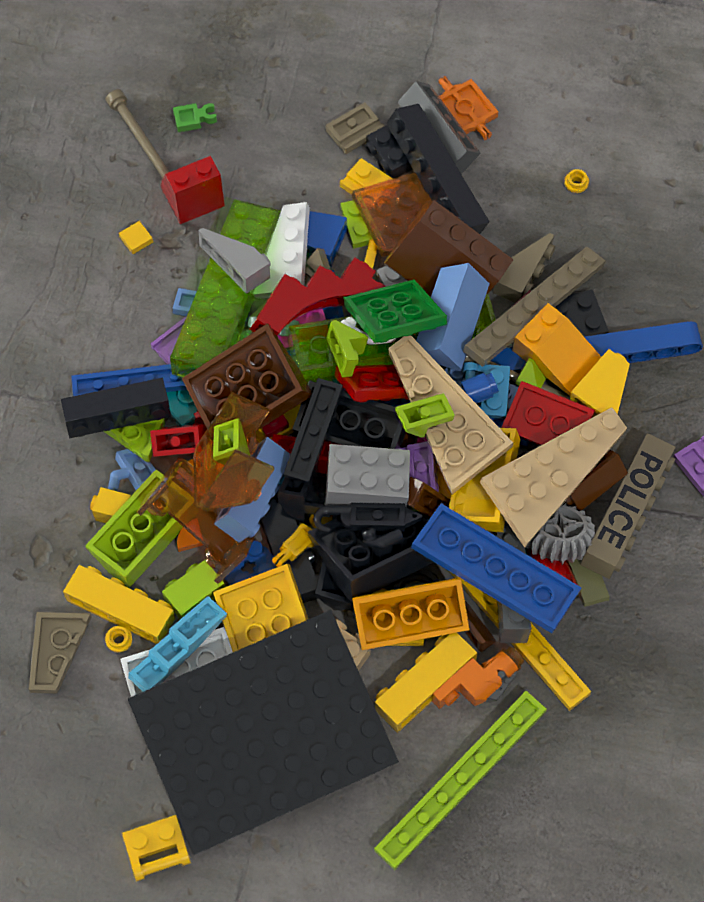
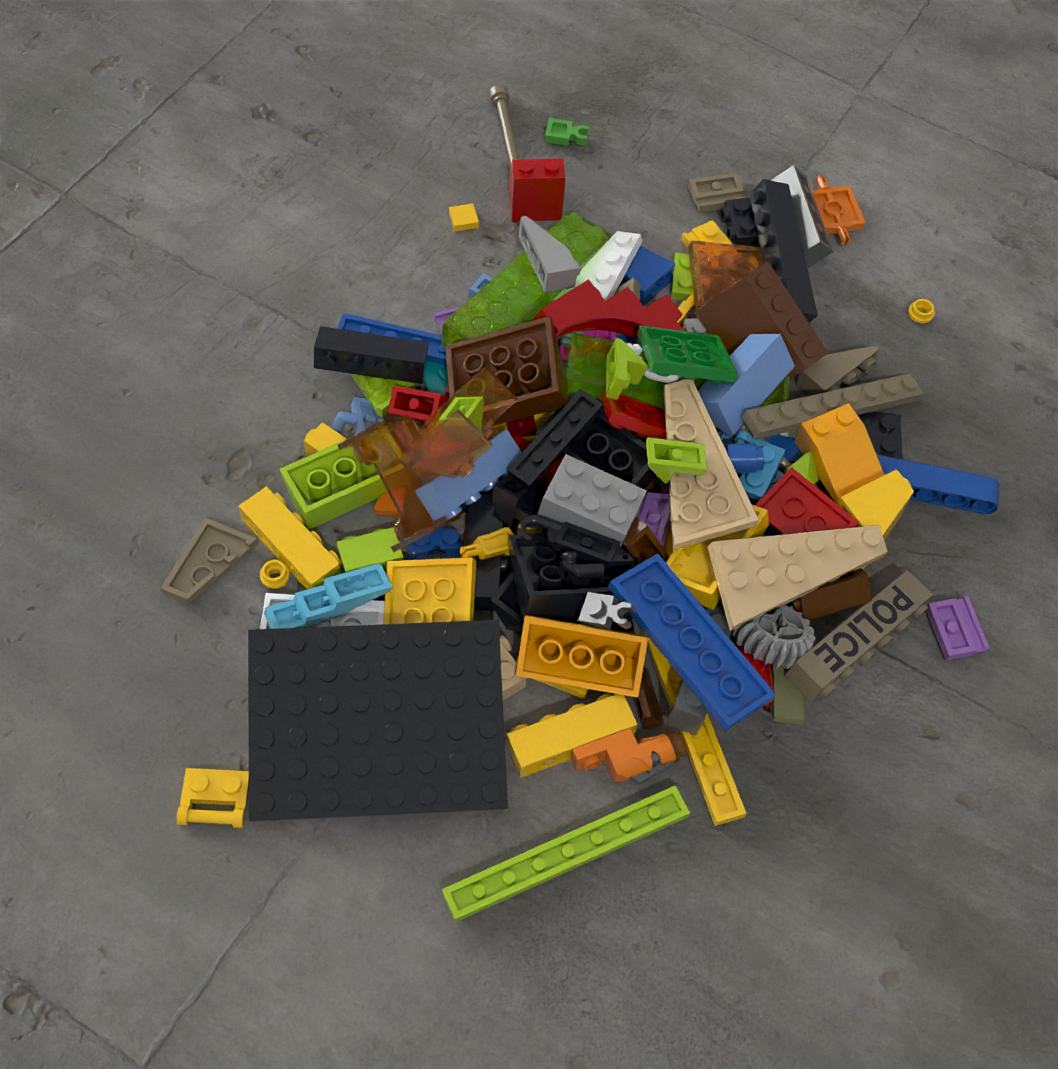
camera: 15 degrees right, 5 degrees down
(415, 569) = (602, 610): none -> plate

